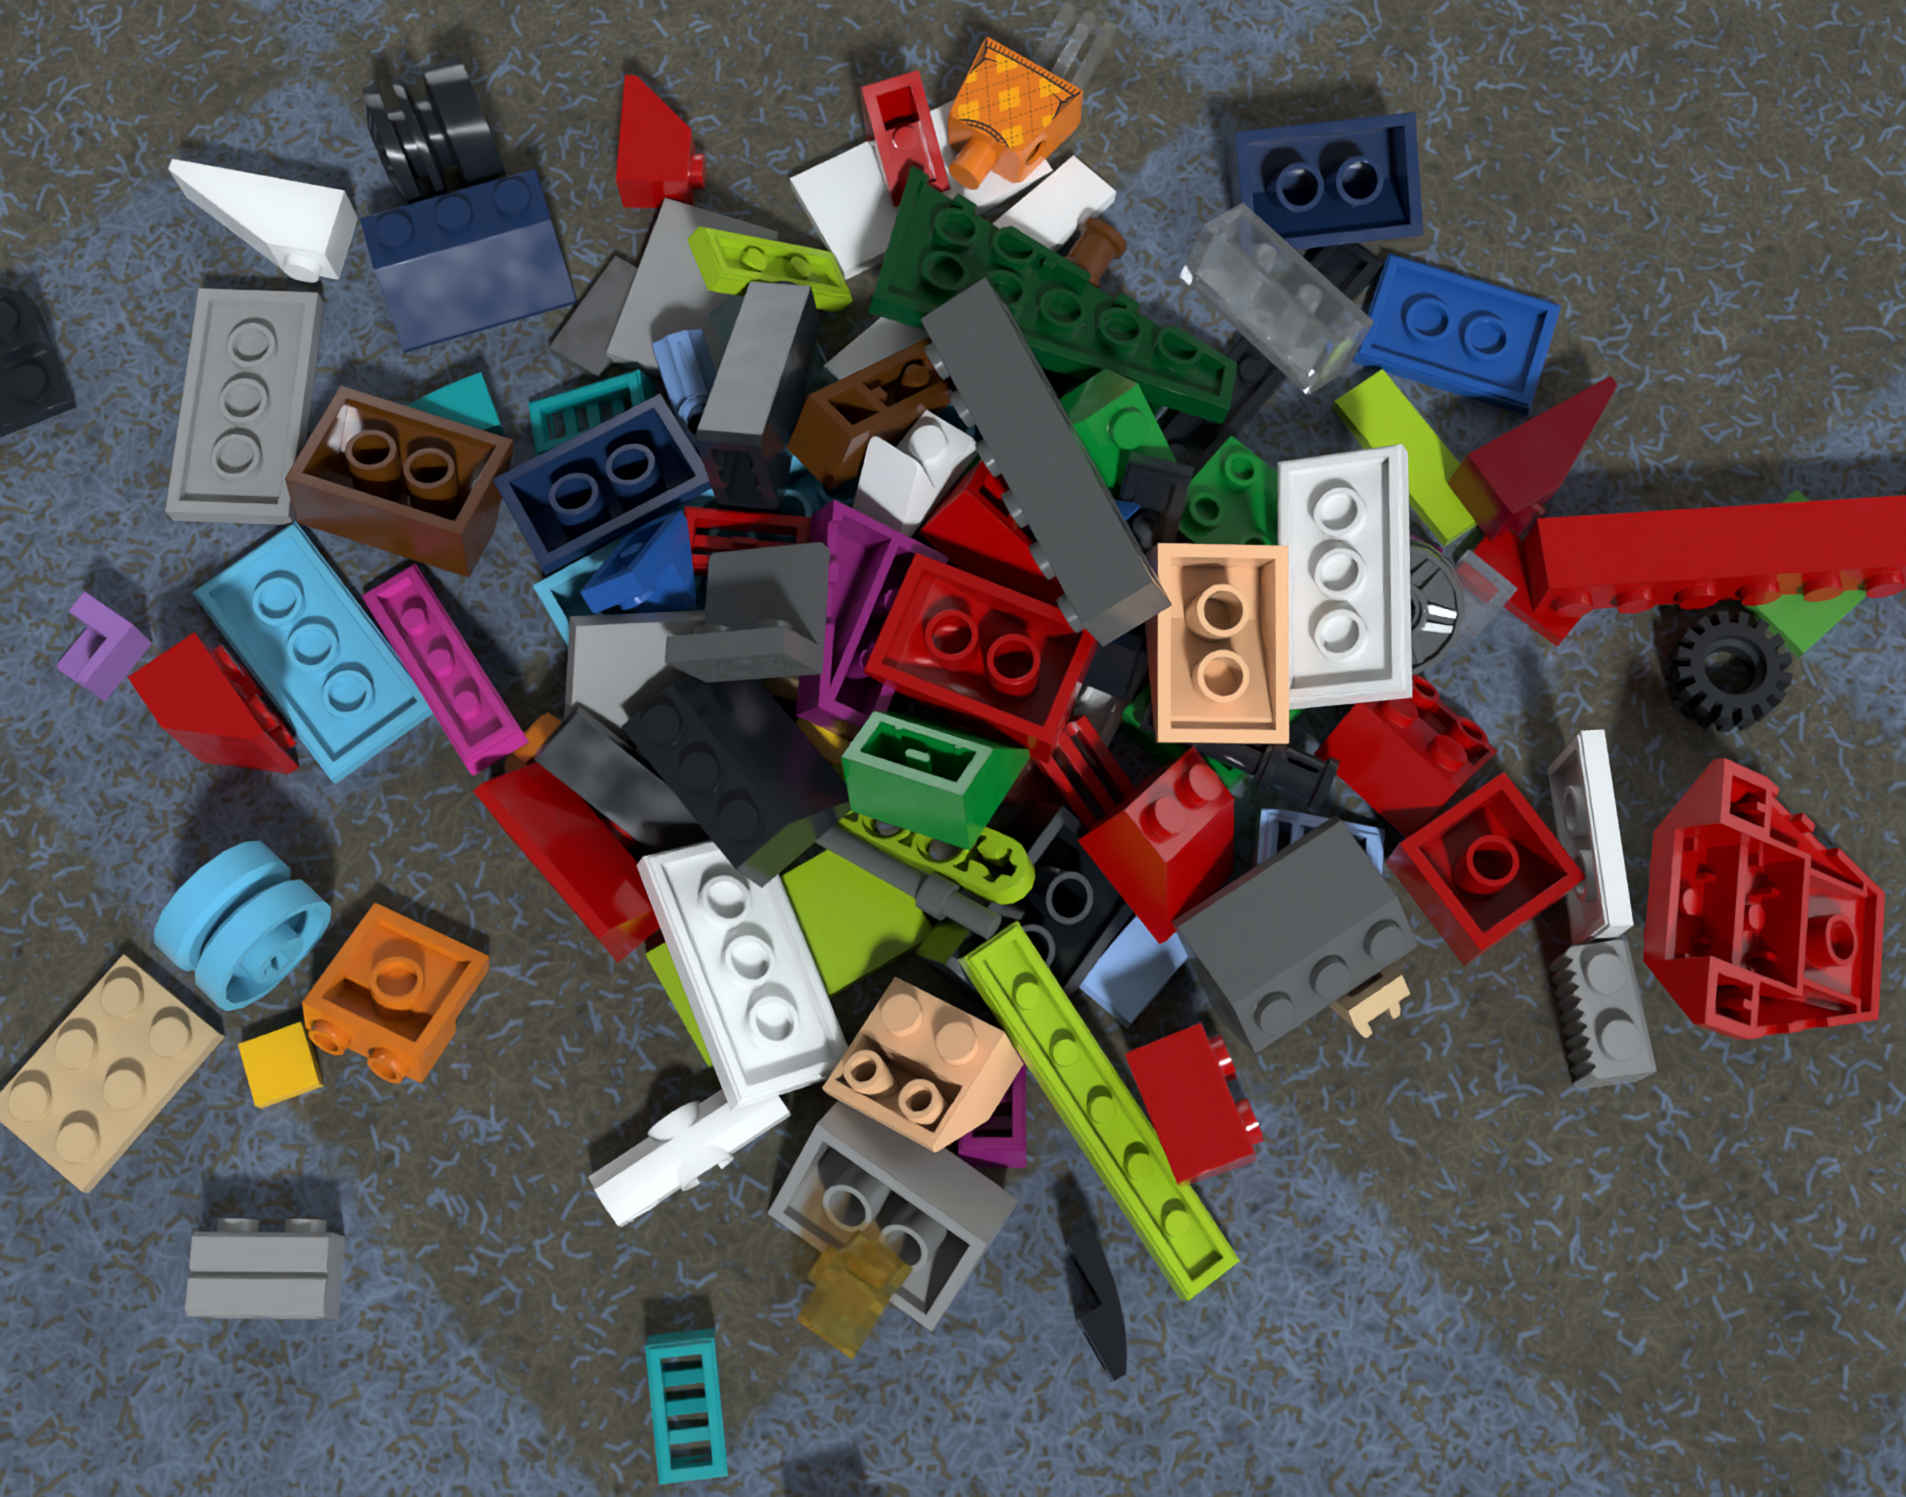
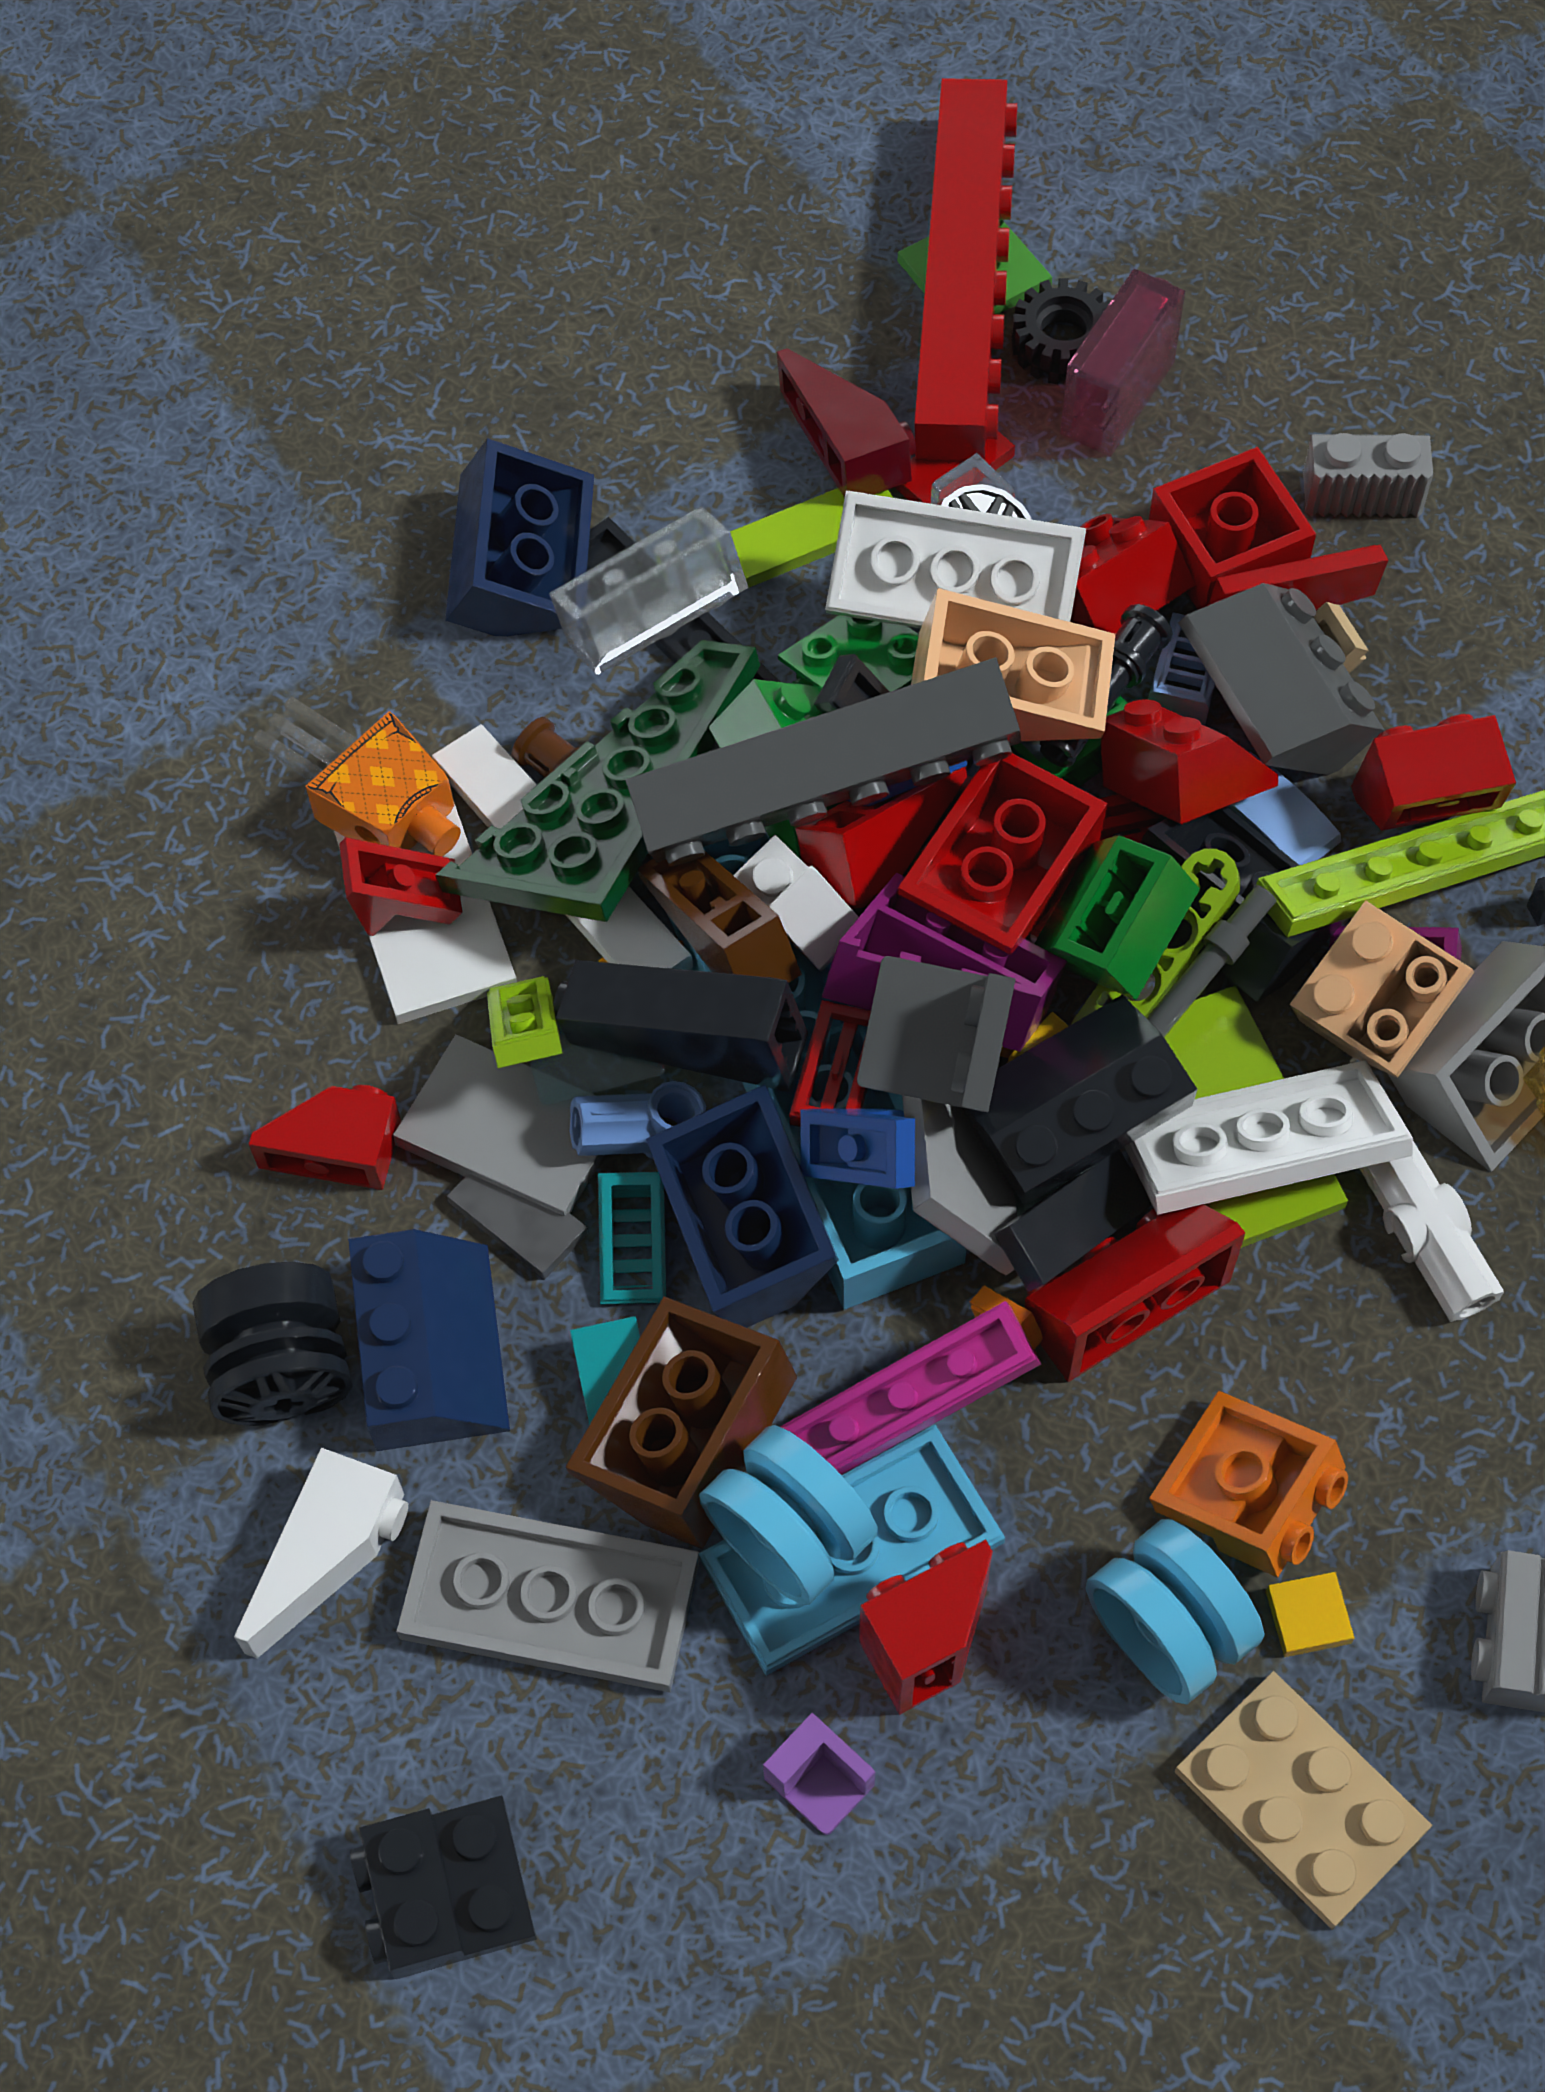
camera: 80 degrees left, 10 degrees down
(293, 568) = (789, 1514): none -> medium azure wheel
(1437, 957) = (1323, 579): none -> red tile
(1458, 334) = (692, 460): blue tile -> none
(1591, 836) = (1188, 435): white tile -> none
(1683, 722) = (1122, 362): none -> clear pink brick
(1756, 916) = (1299, 343): red wedge -> none

